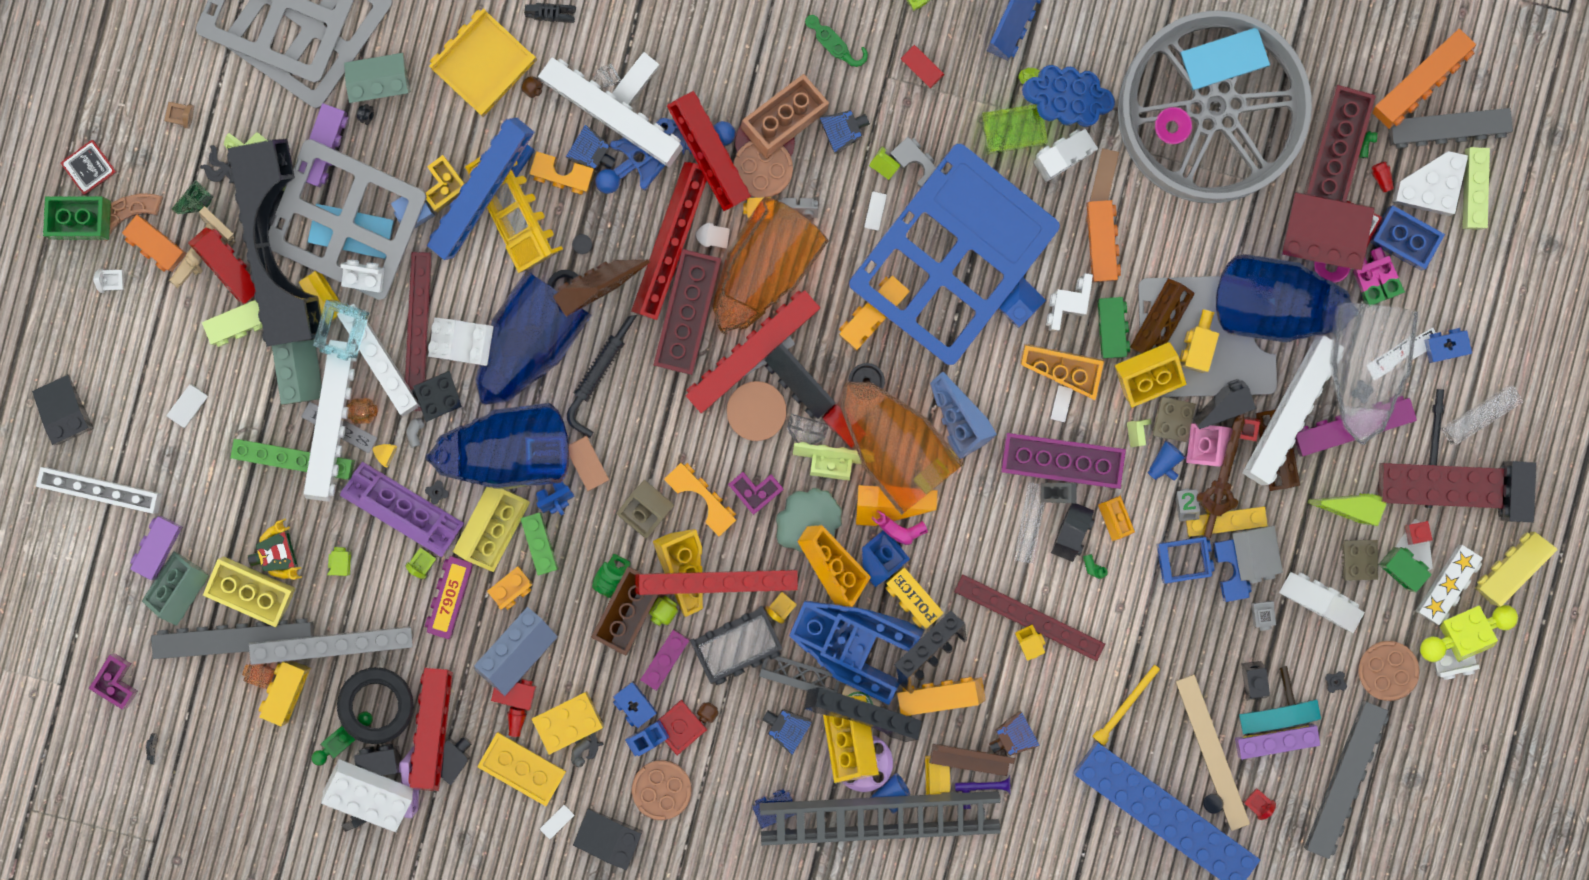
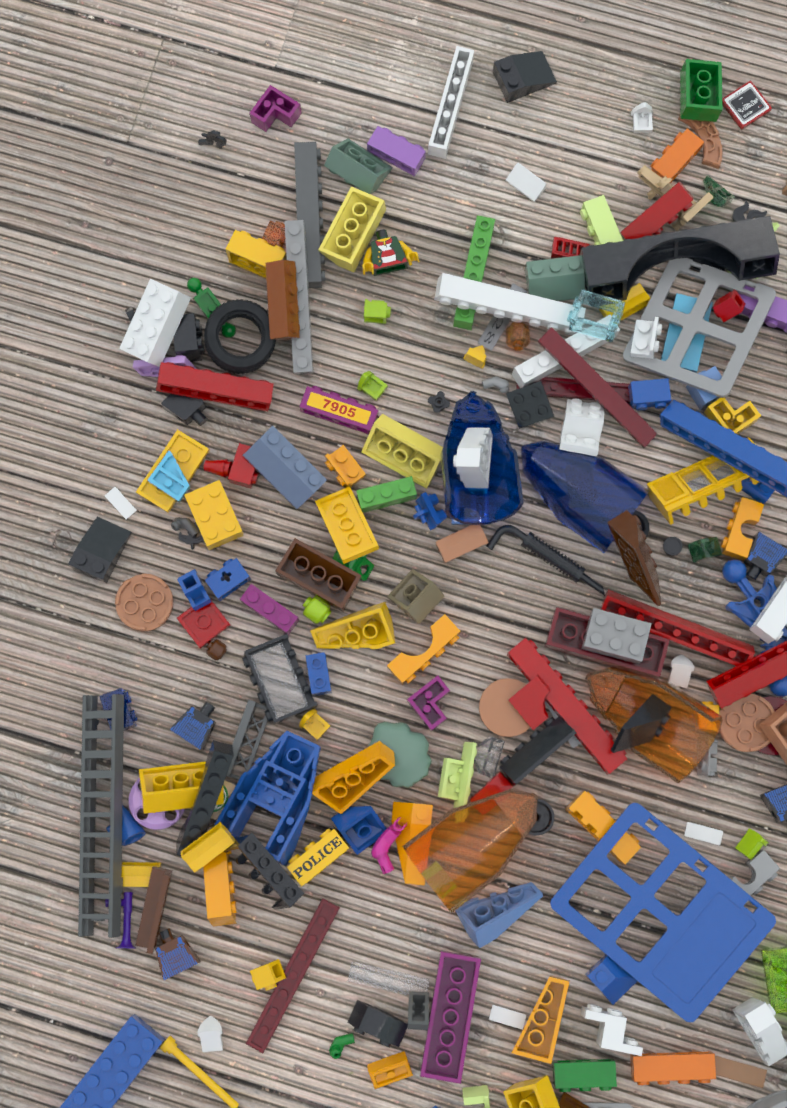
camera: 95 degrees right, 10 degrees down
(253, 367) = (558, 241): none -> red slope
(323, 188) = (729, 306): none -> red brick
(337, 662) = (282, 300): none -> dark orange brick
(402, 509) = (423, 369): medium lavender slope -> none
(417, 326) = (597, 387): none -> dark red tile
(421, 270) = (649, 394): none -> blue brick
(498, 453) = (474, 457): none -> white brick
(531, 770) = (170, 478): none -> medium azure wing
(574, 584) = (346, 525): none -> yellow plate
(584, 211) = (704, 549): none -> clear green bracket
(682, 304) = (616, 636): none -> light grey brick
(716, 582) = (342, 661): red brick -> none
(729, 606) = (318, 674): none -> blue brick
(751, 388) = (531, 702): none -> red tile
(771, 275) = (643, 724): none -> black slope
(909, 708) = (207, 847): none -> yellow piece
(1089, 696) = (210, 1035): none -> white tile

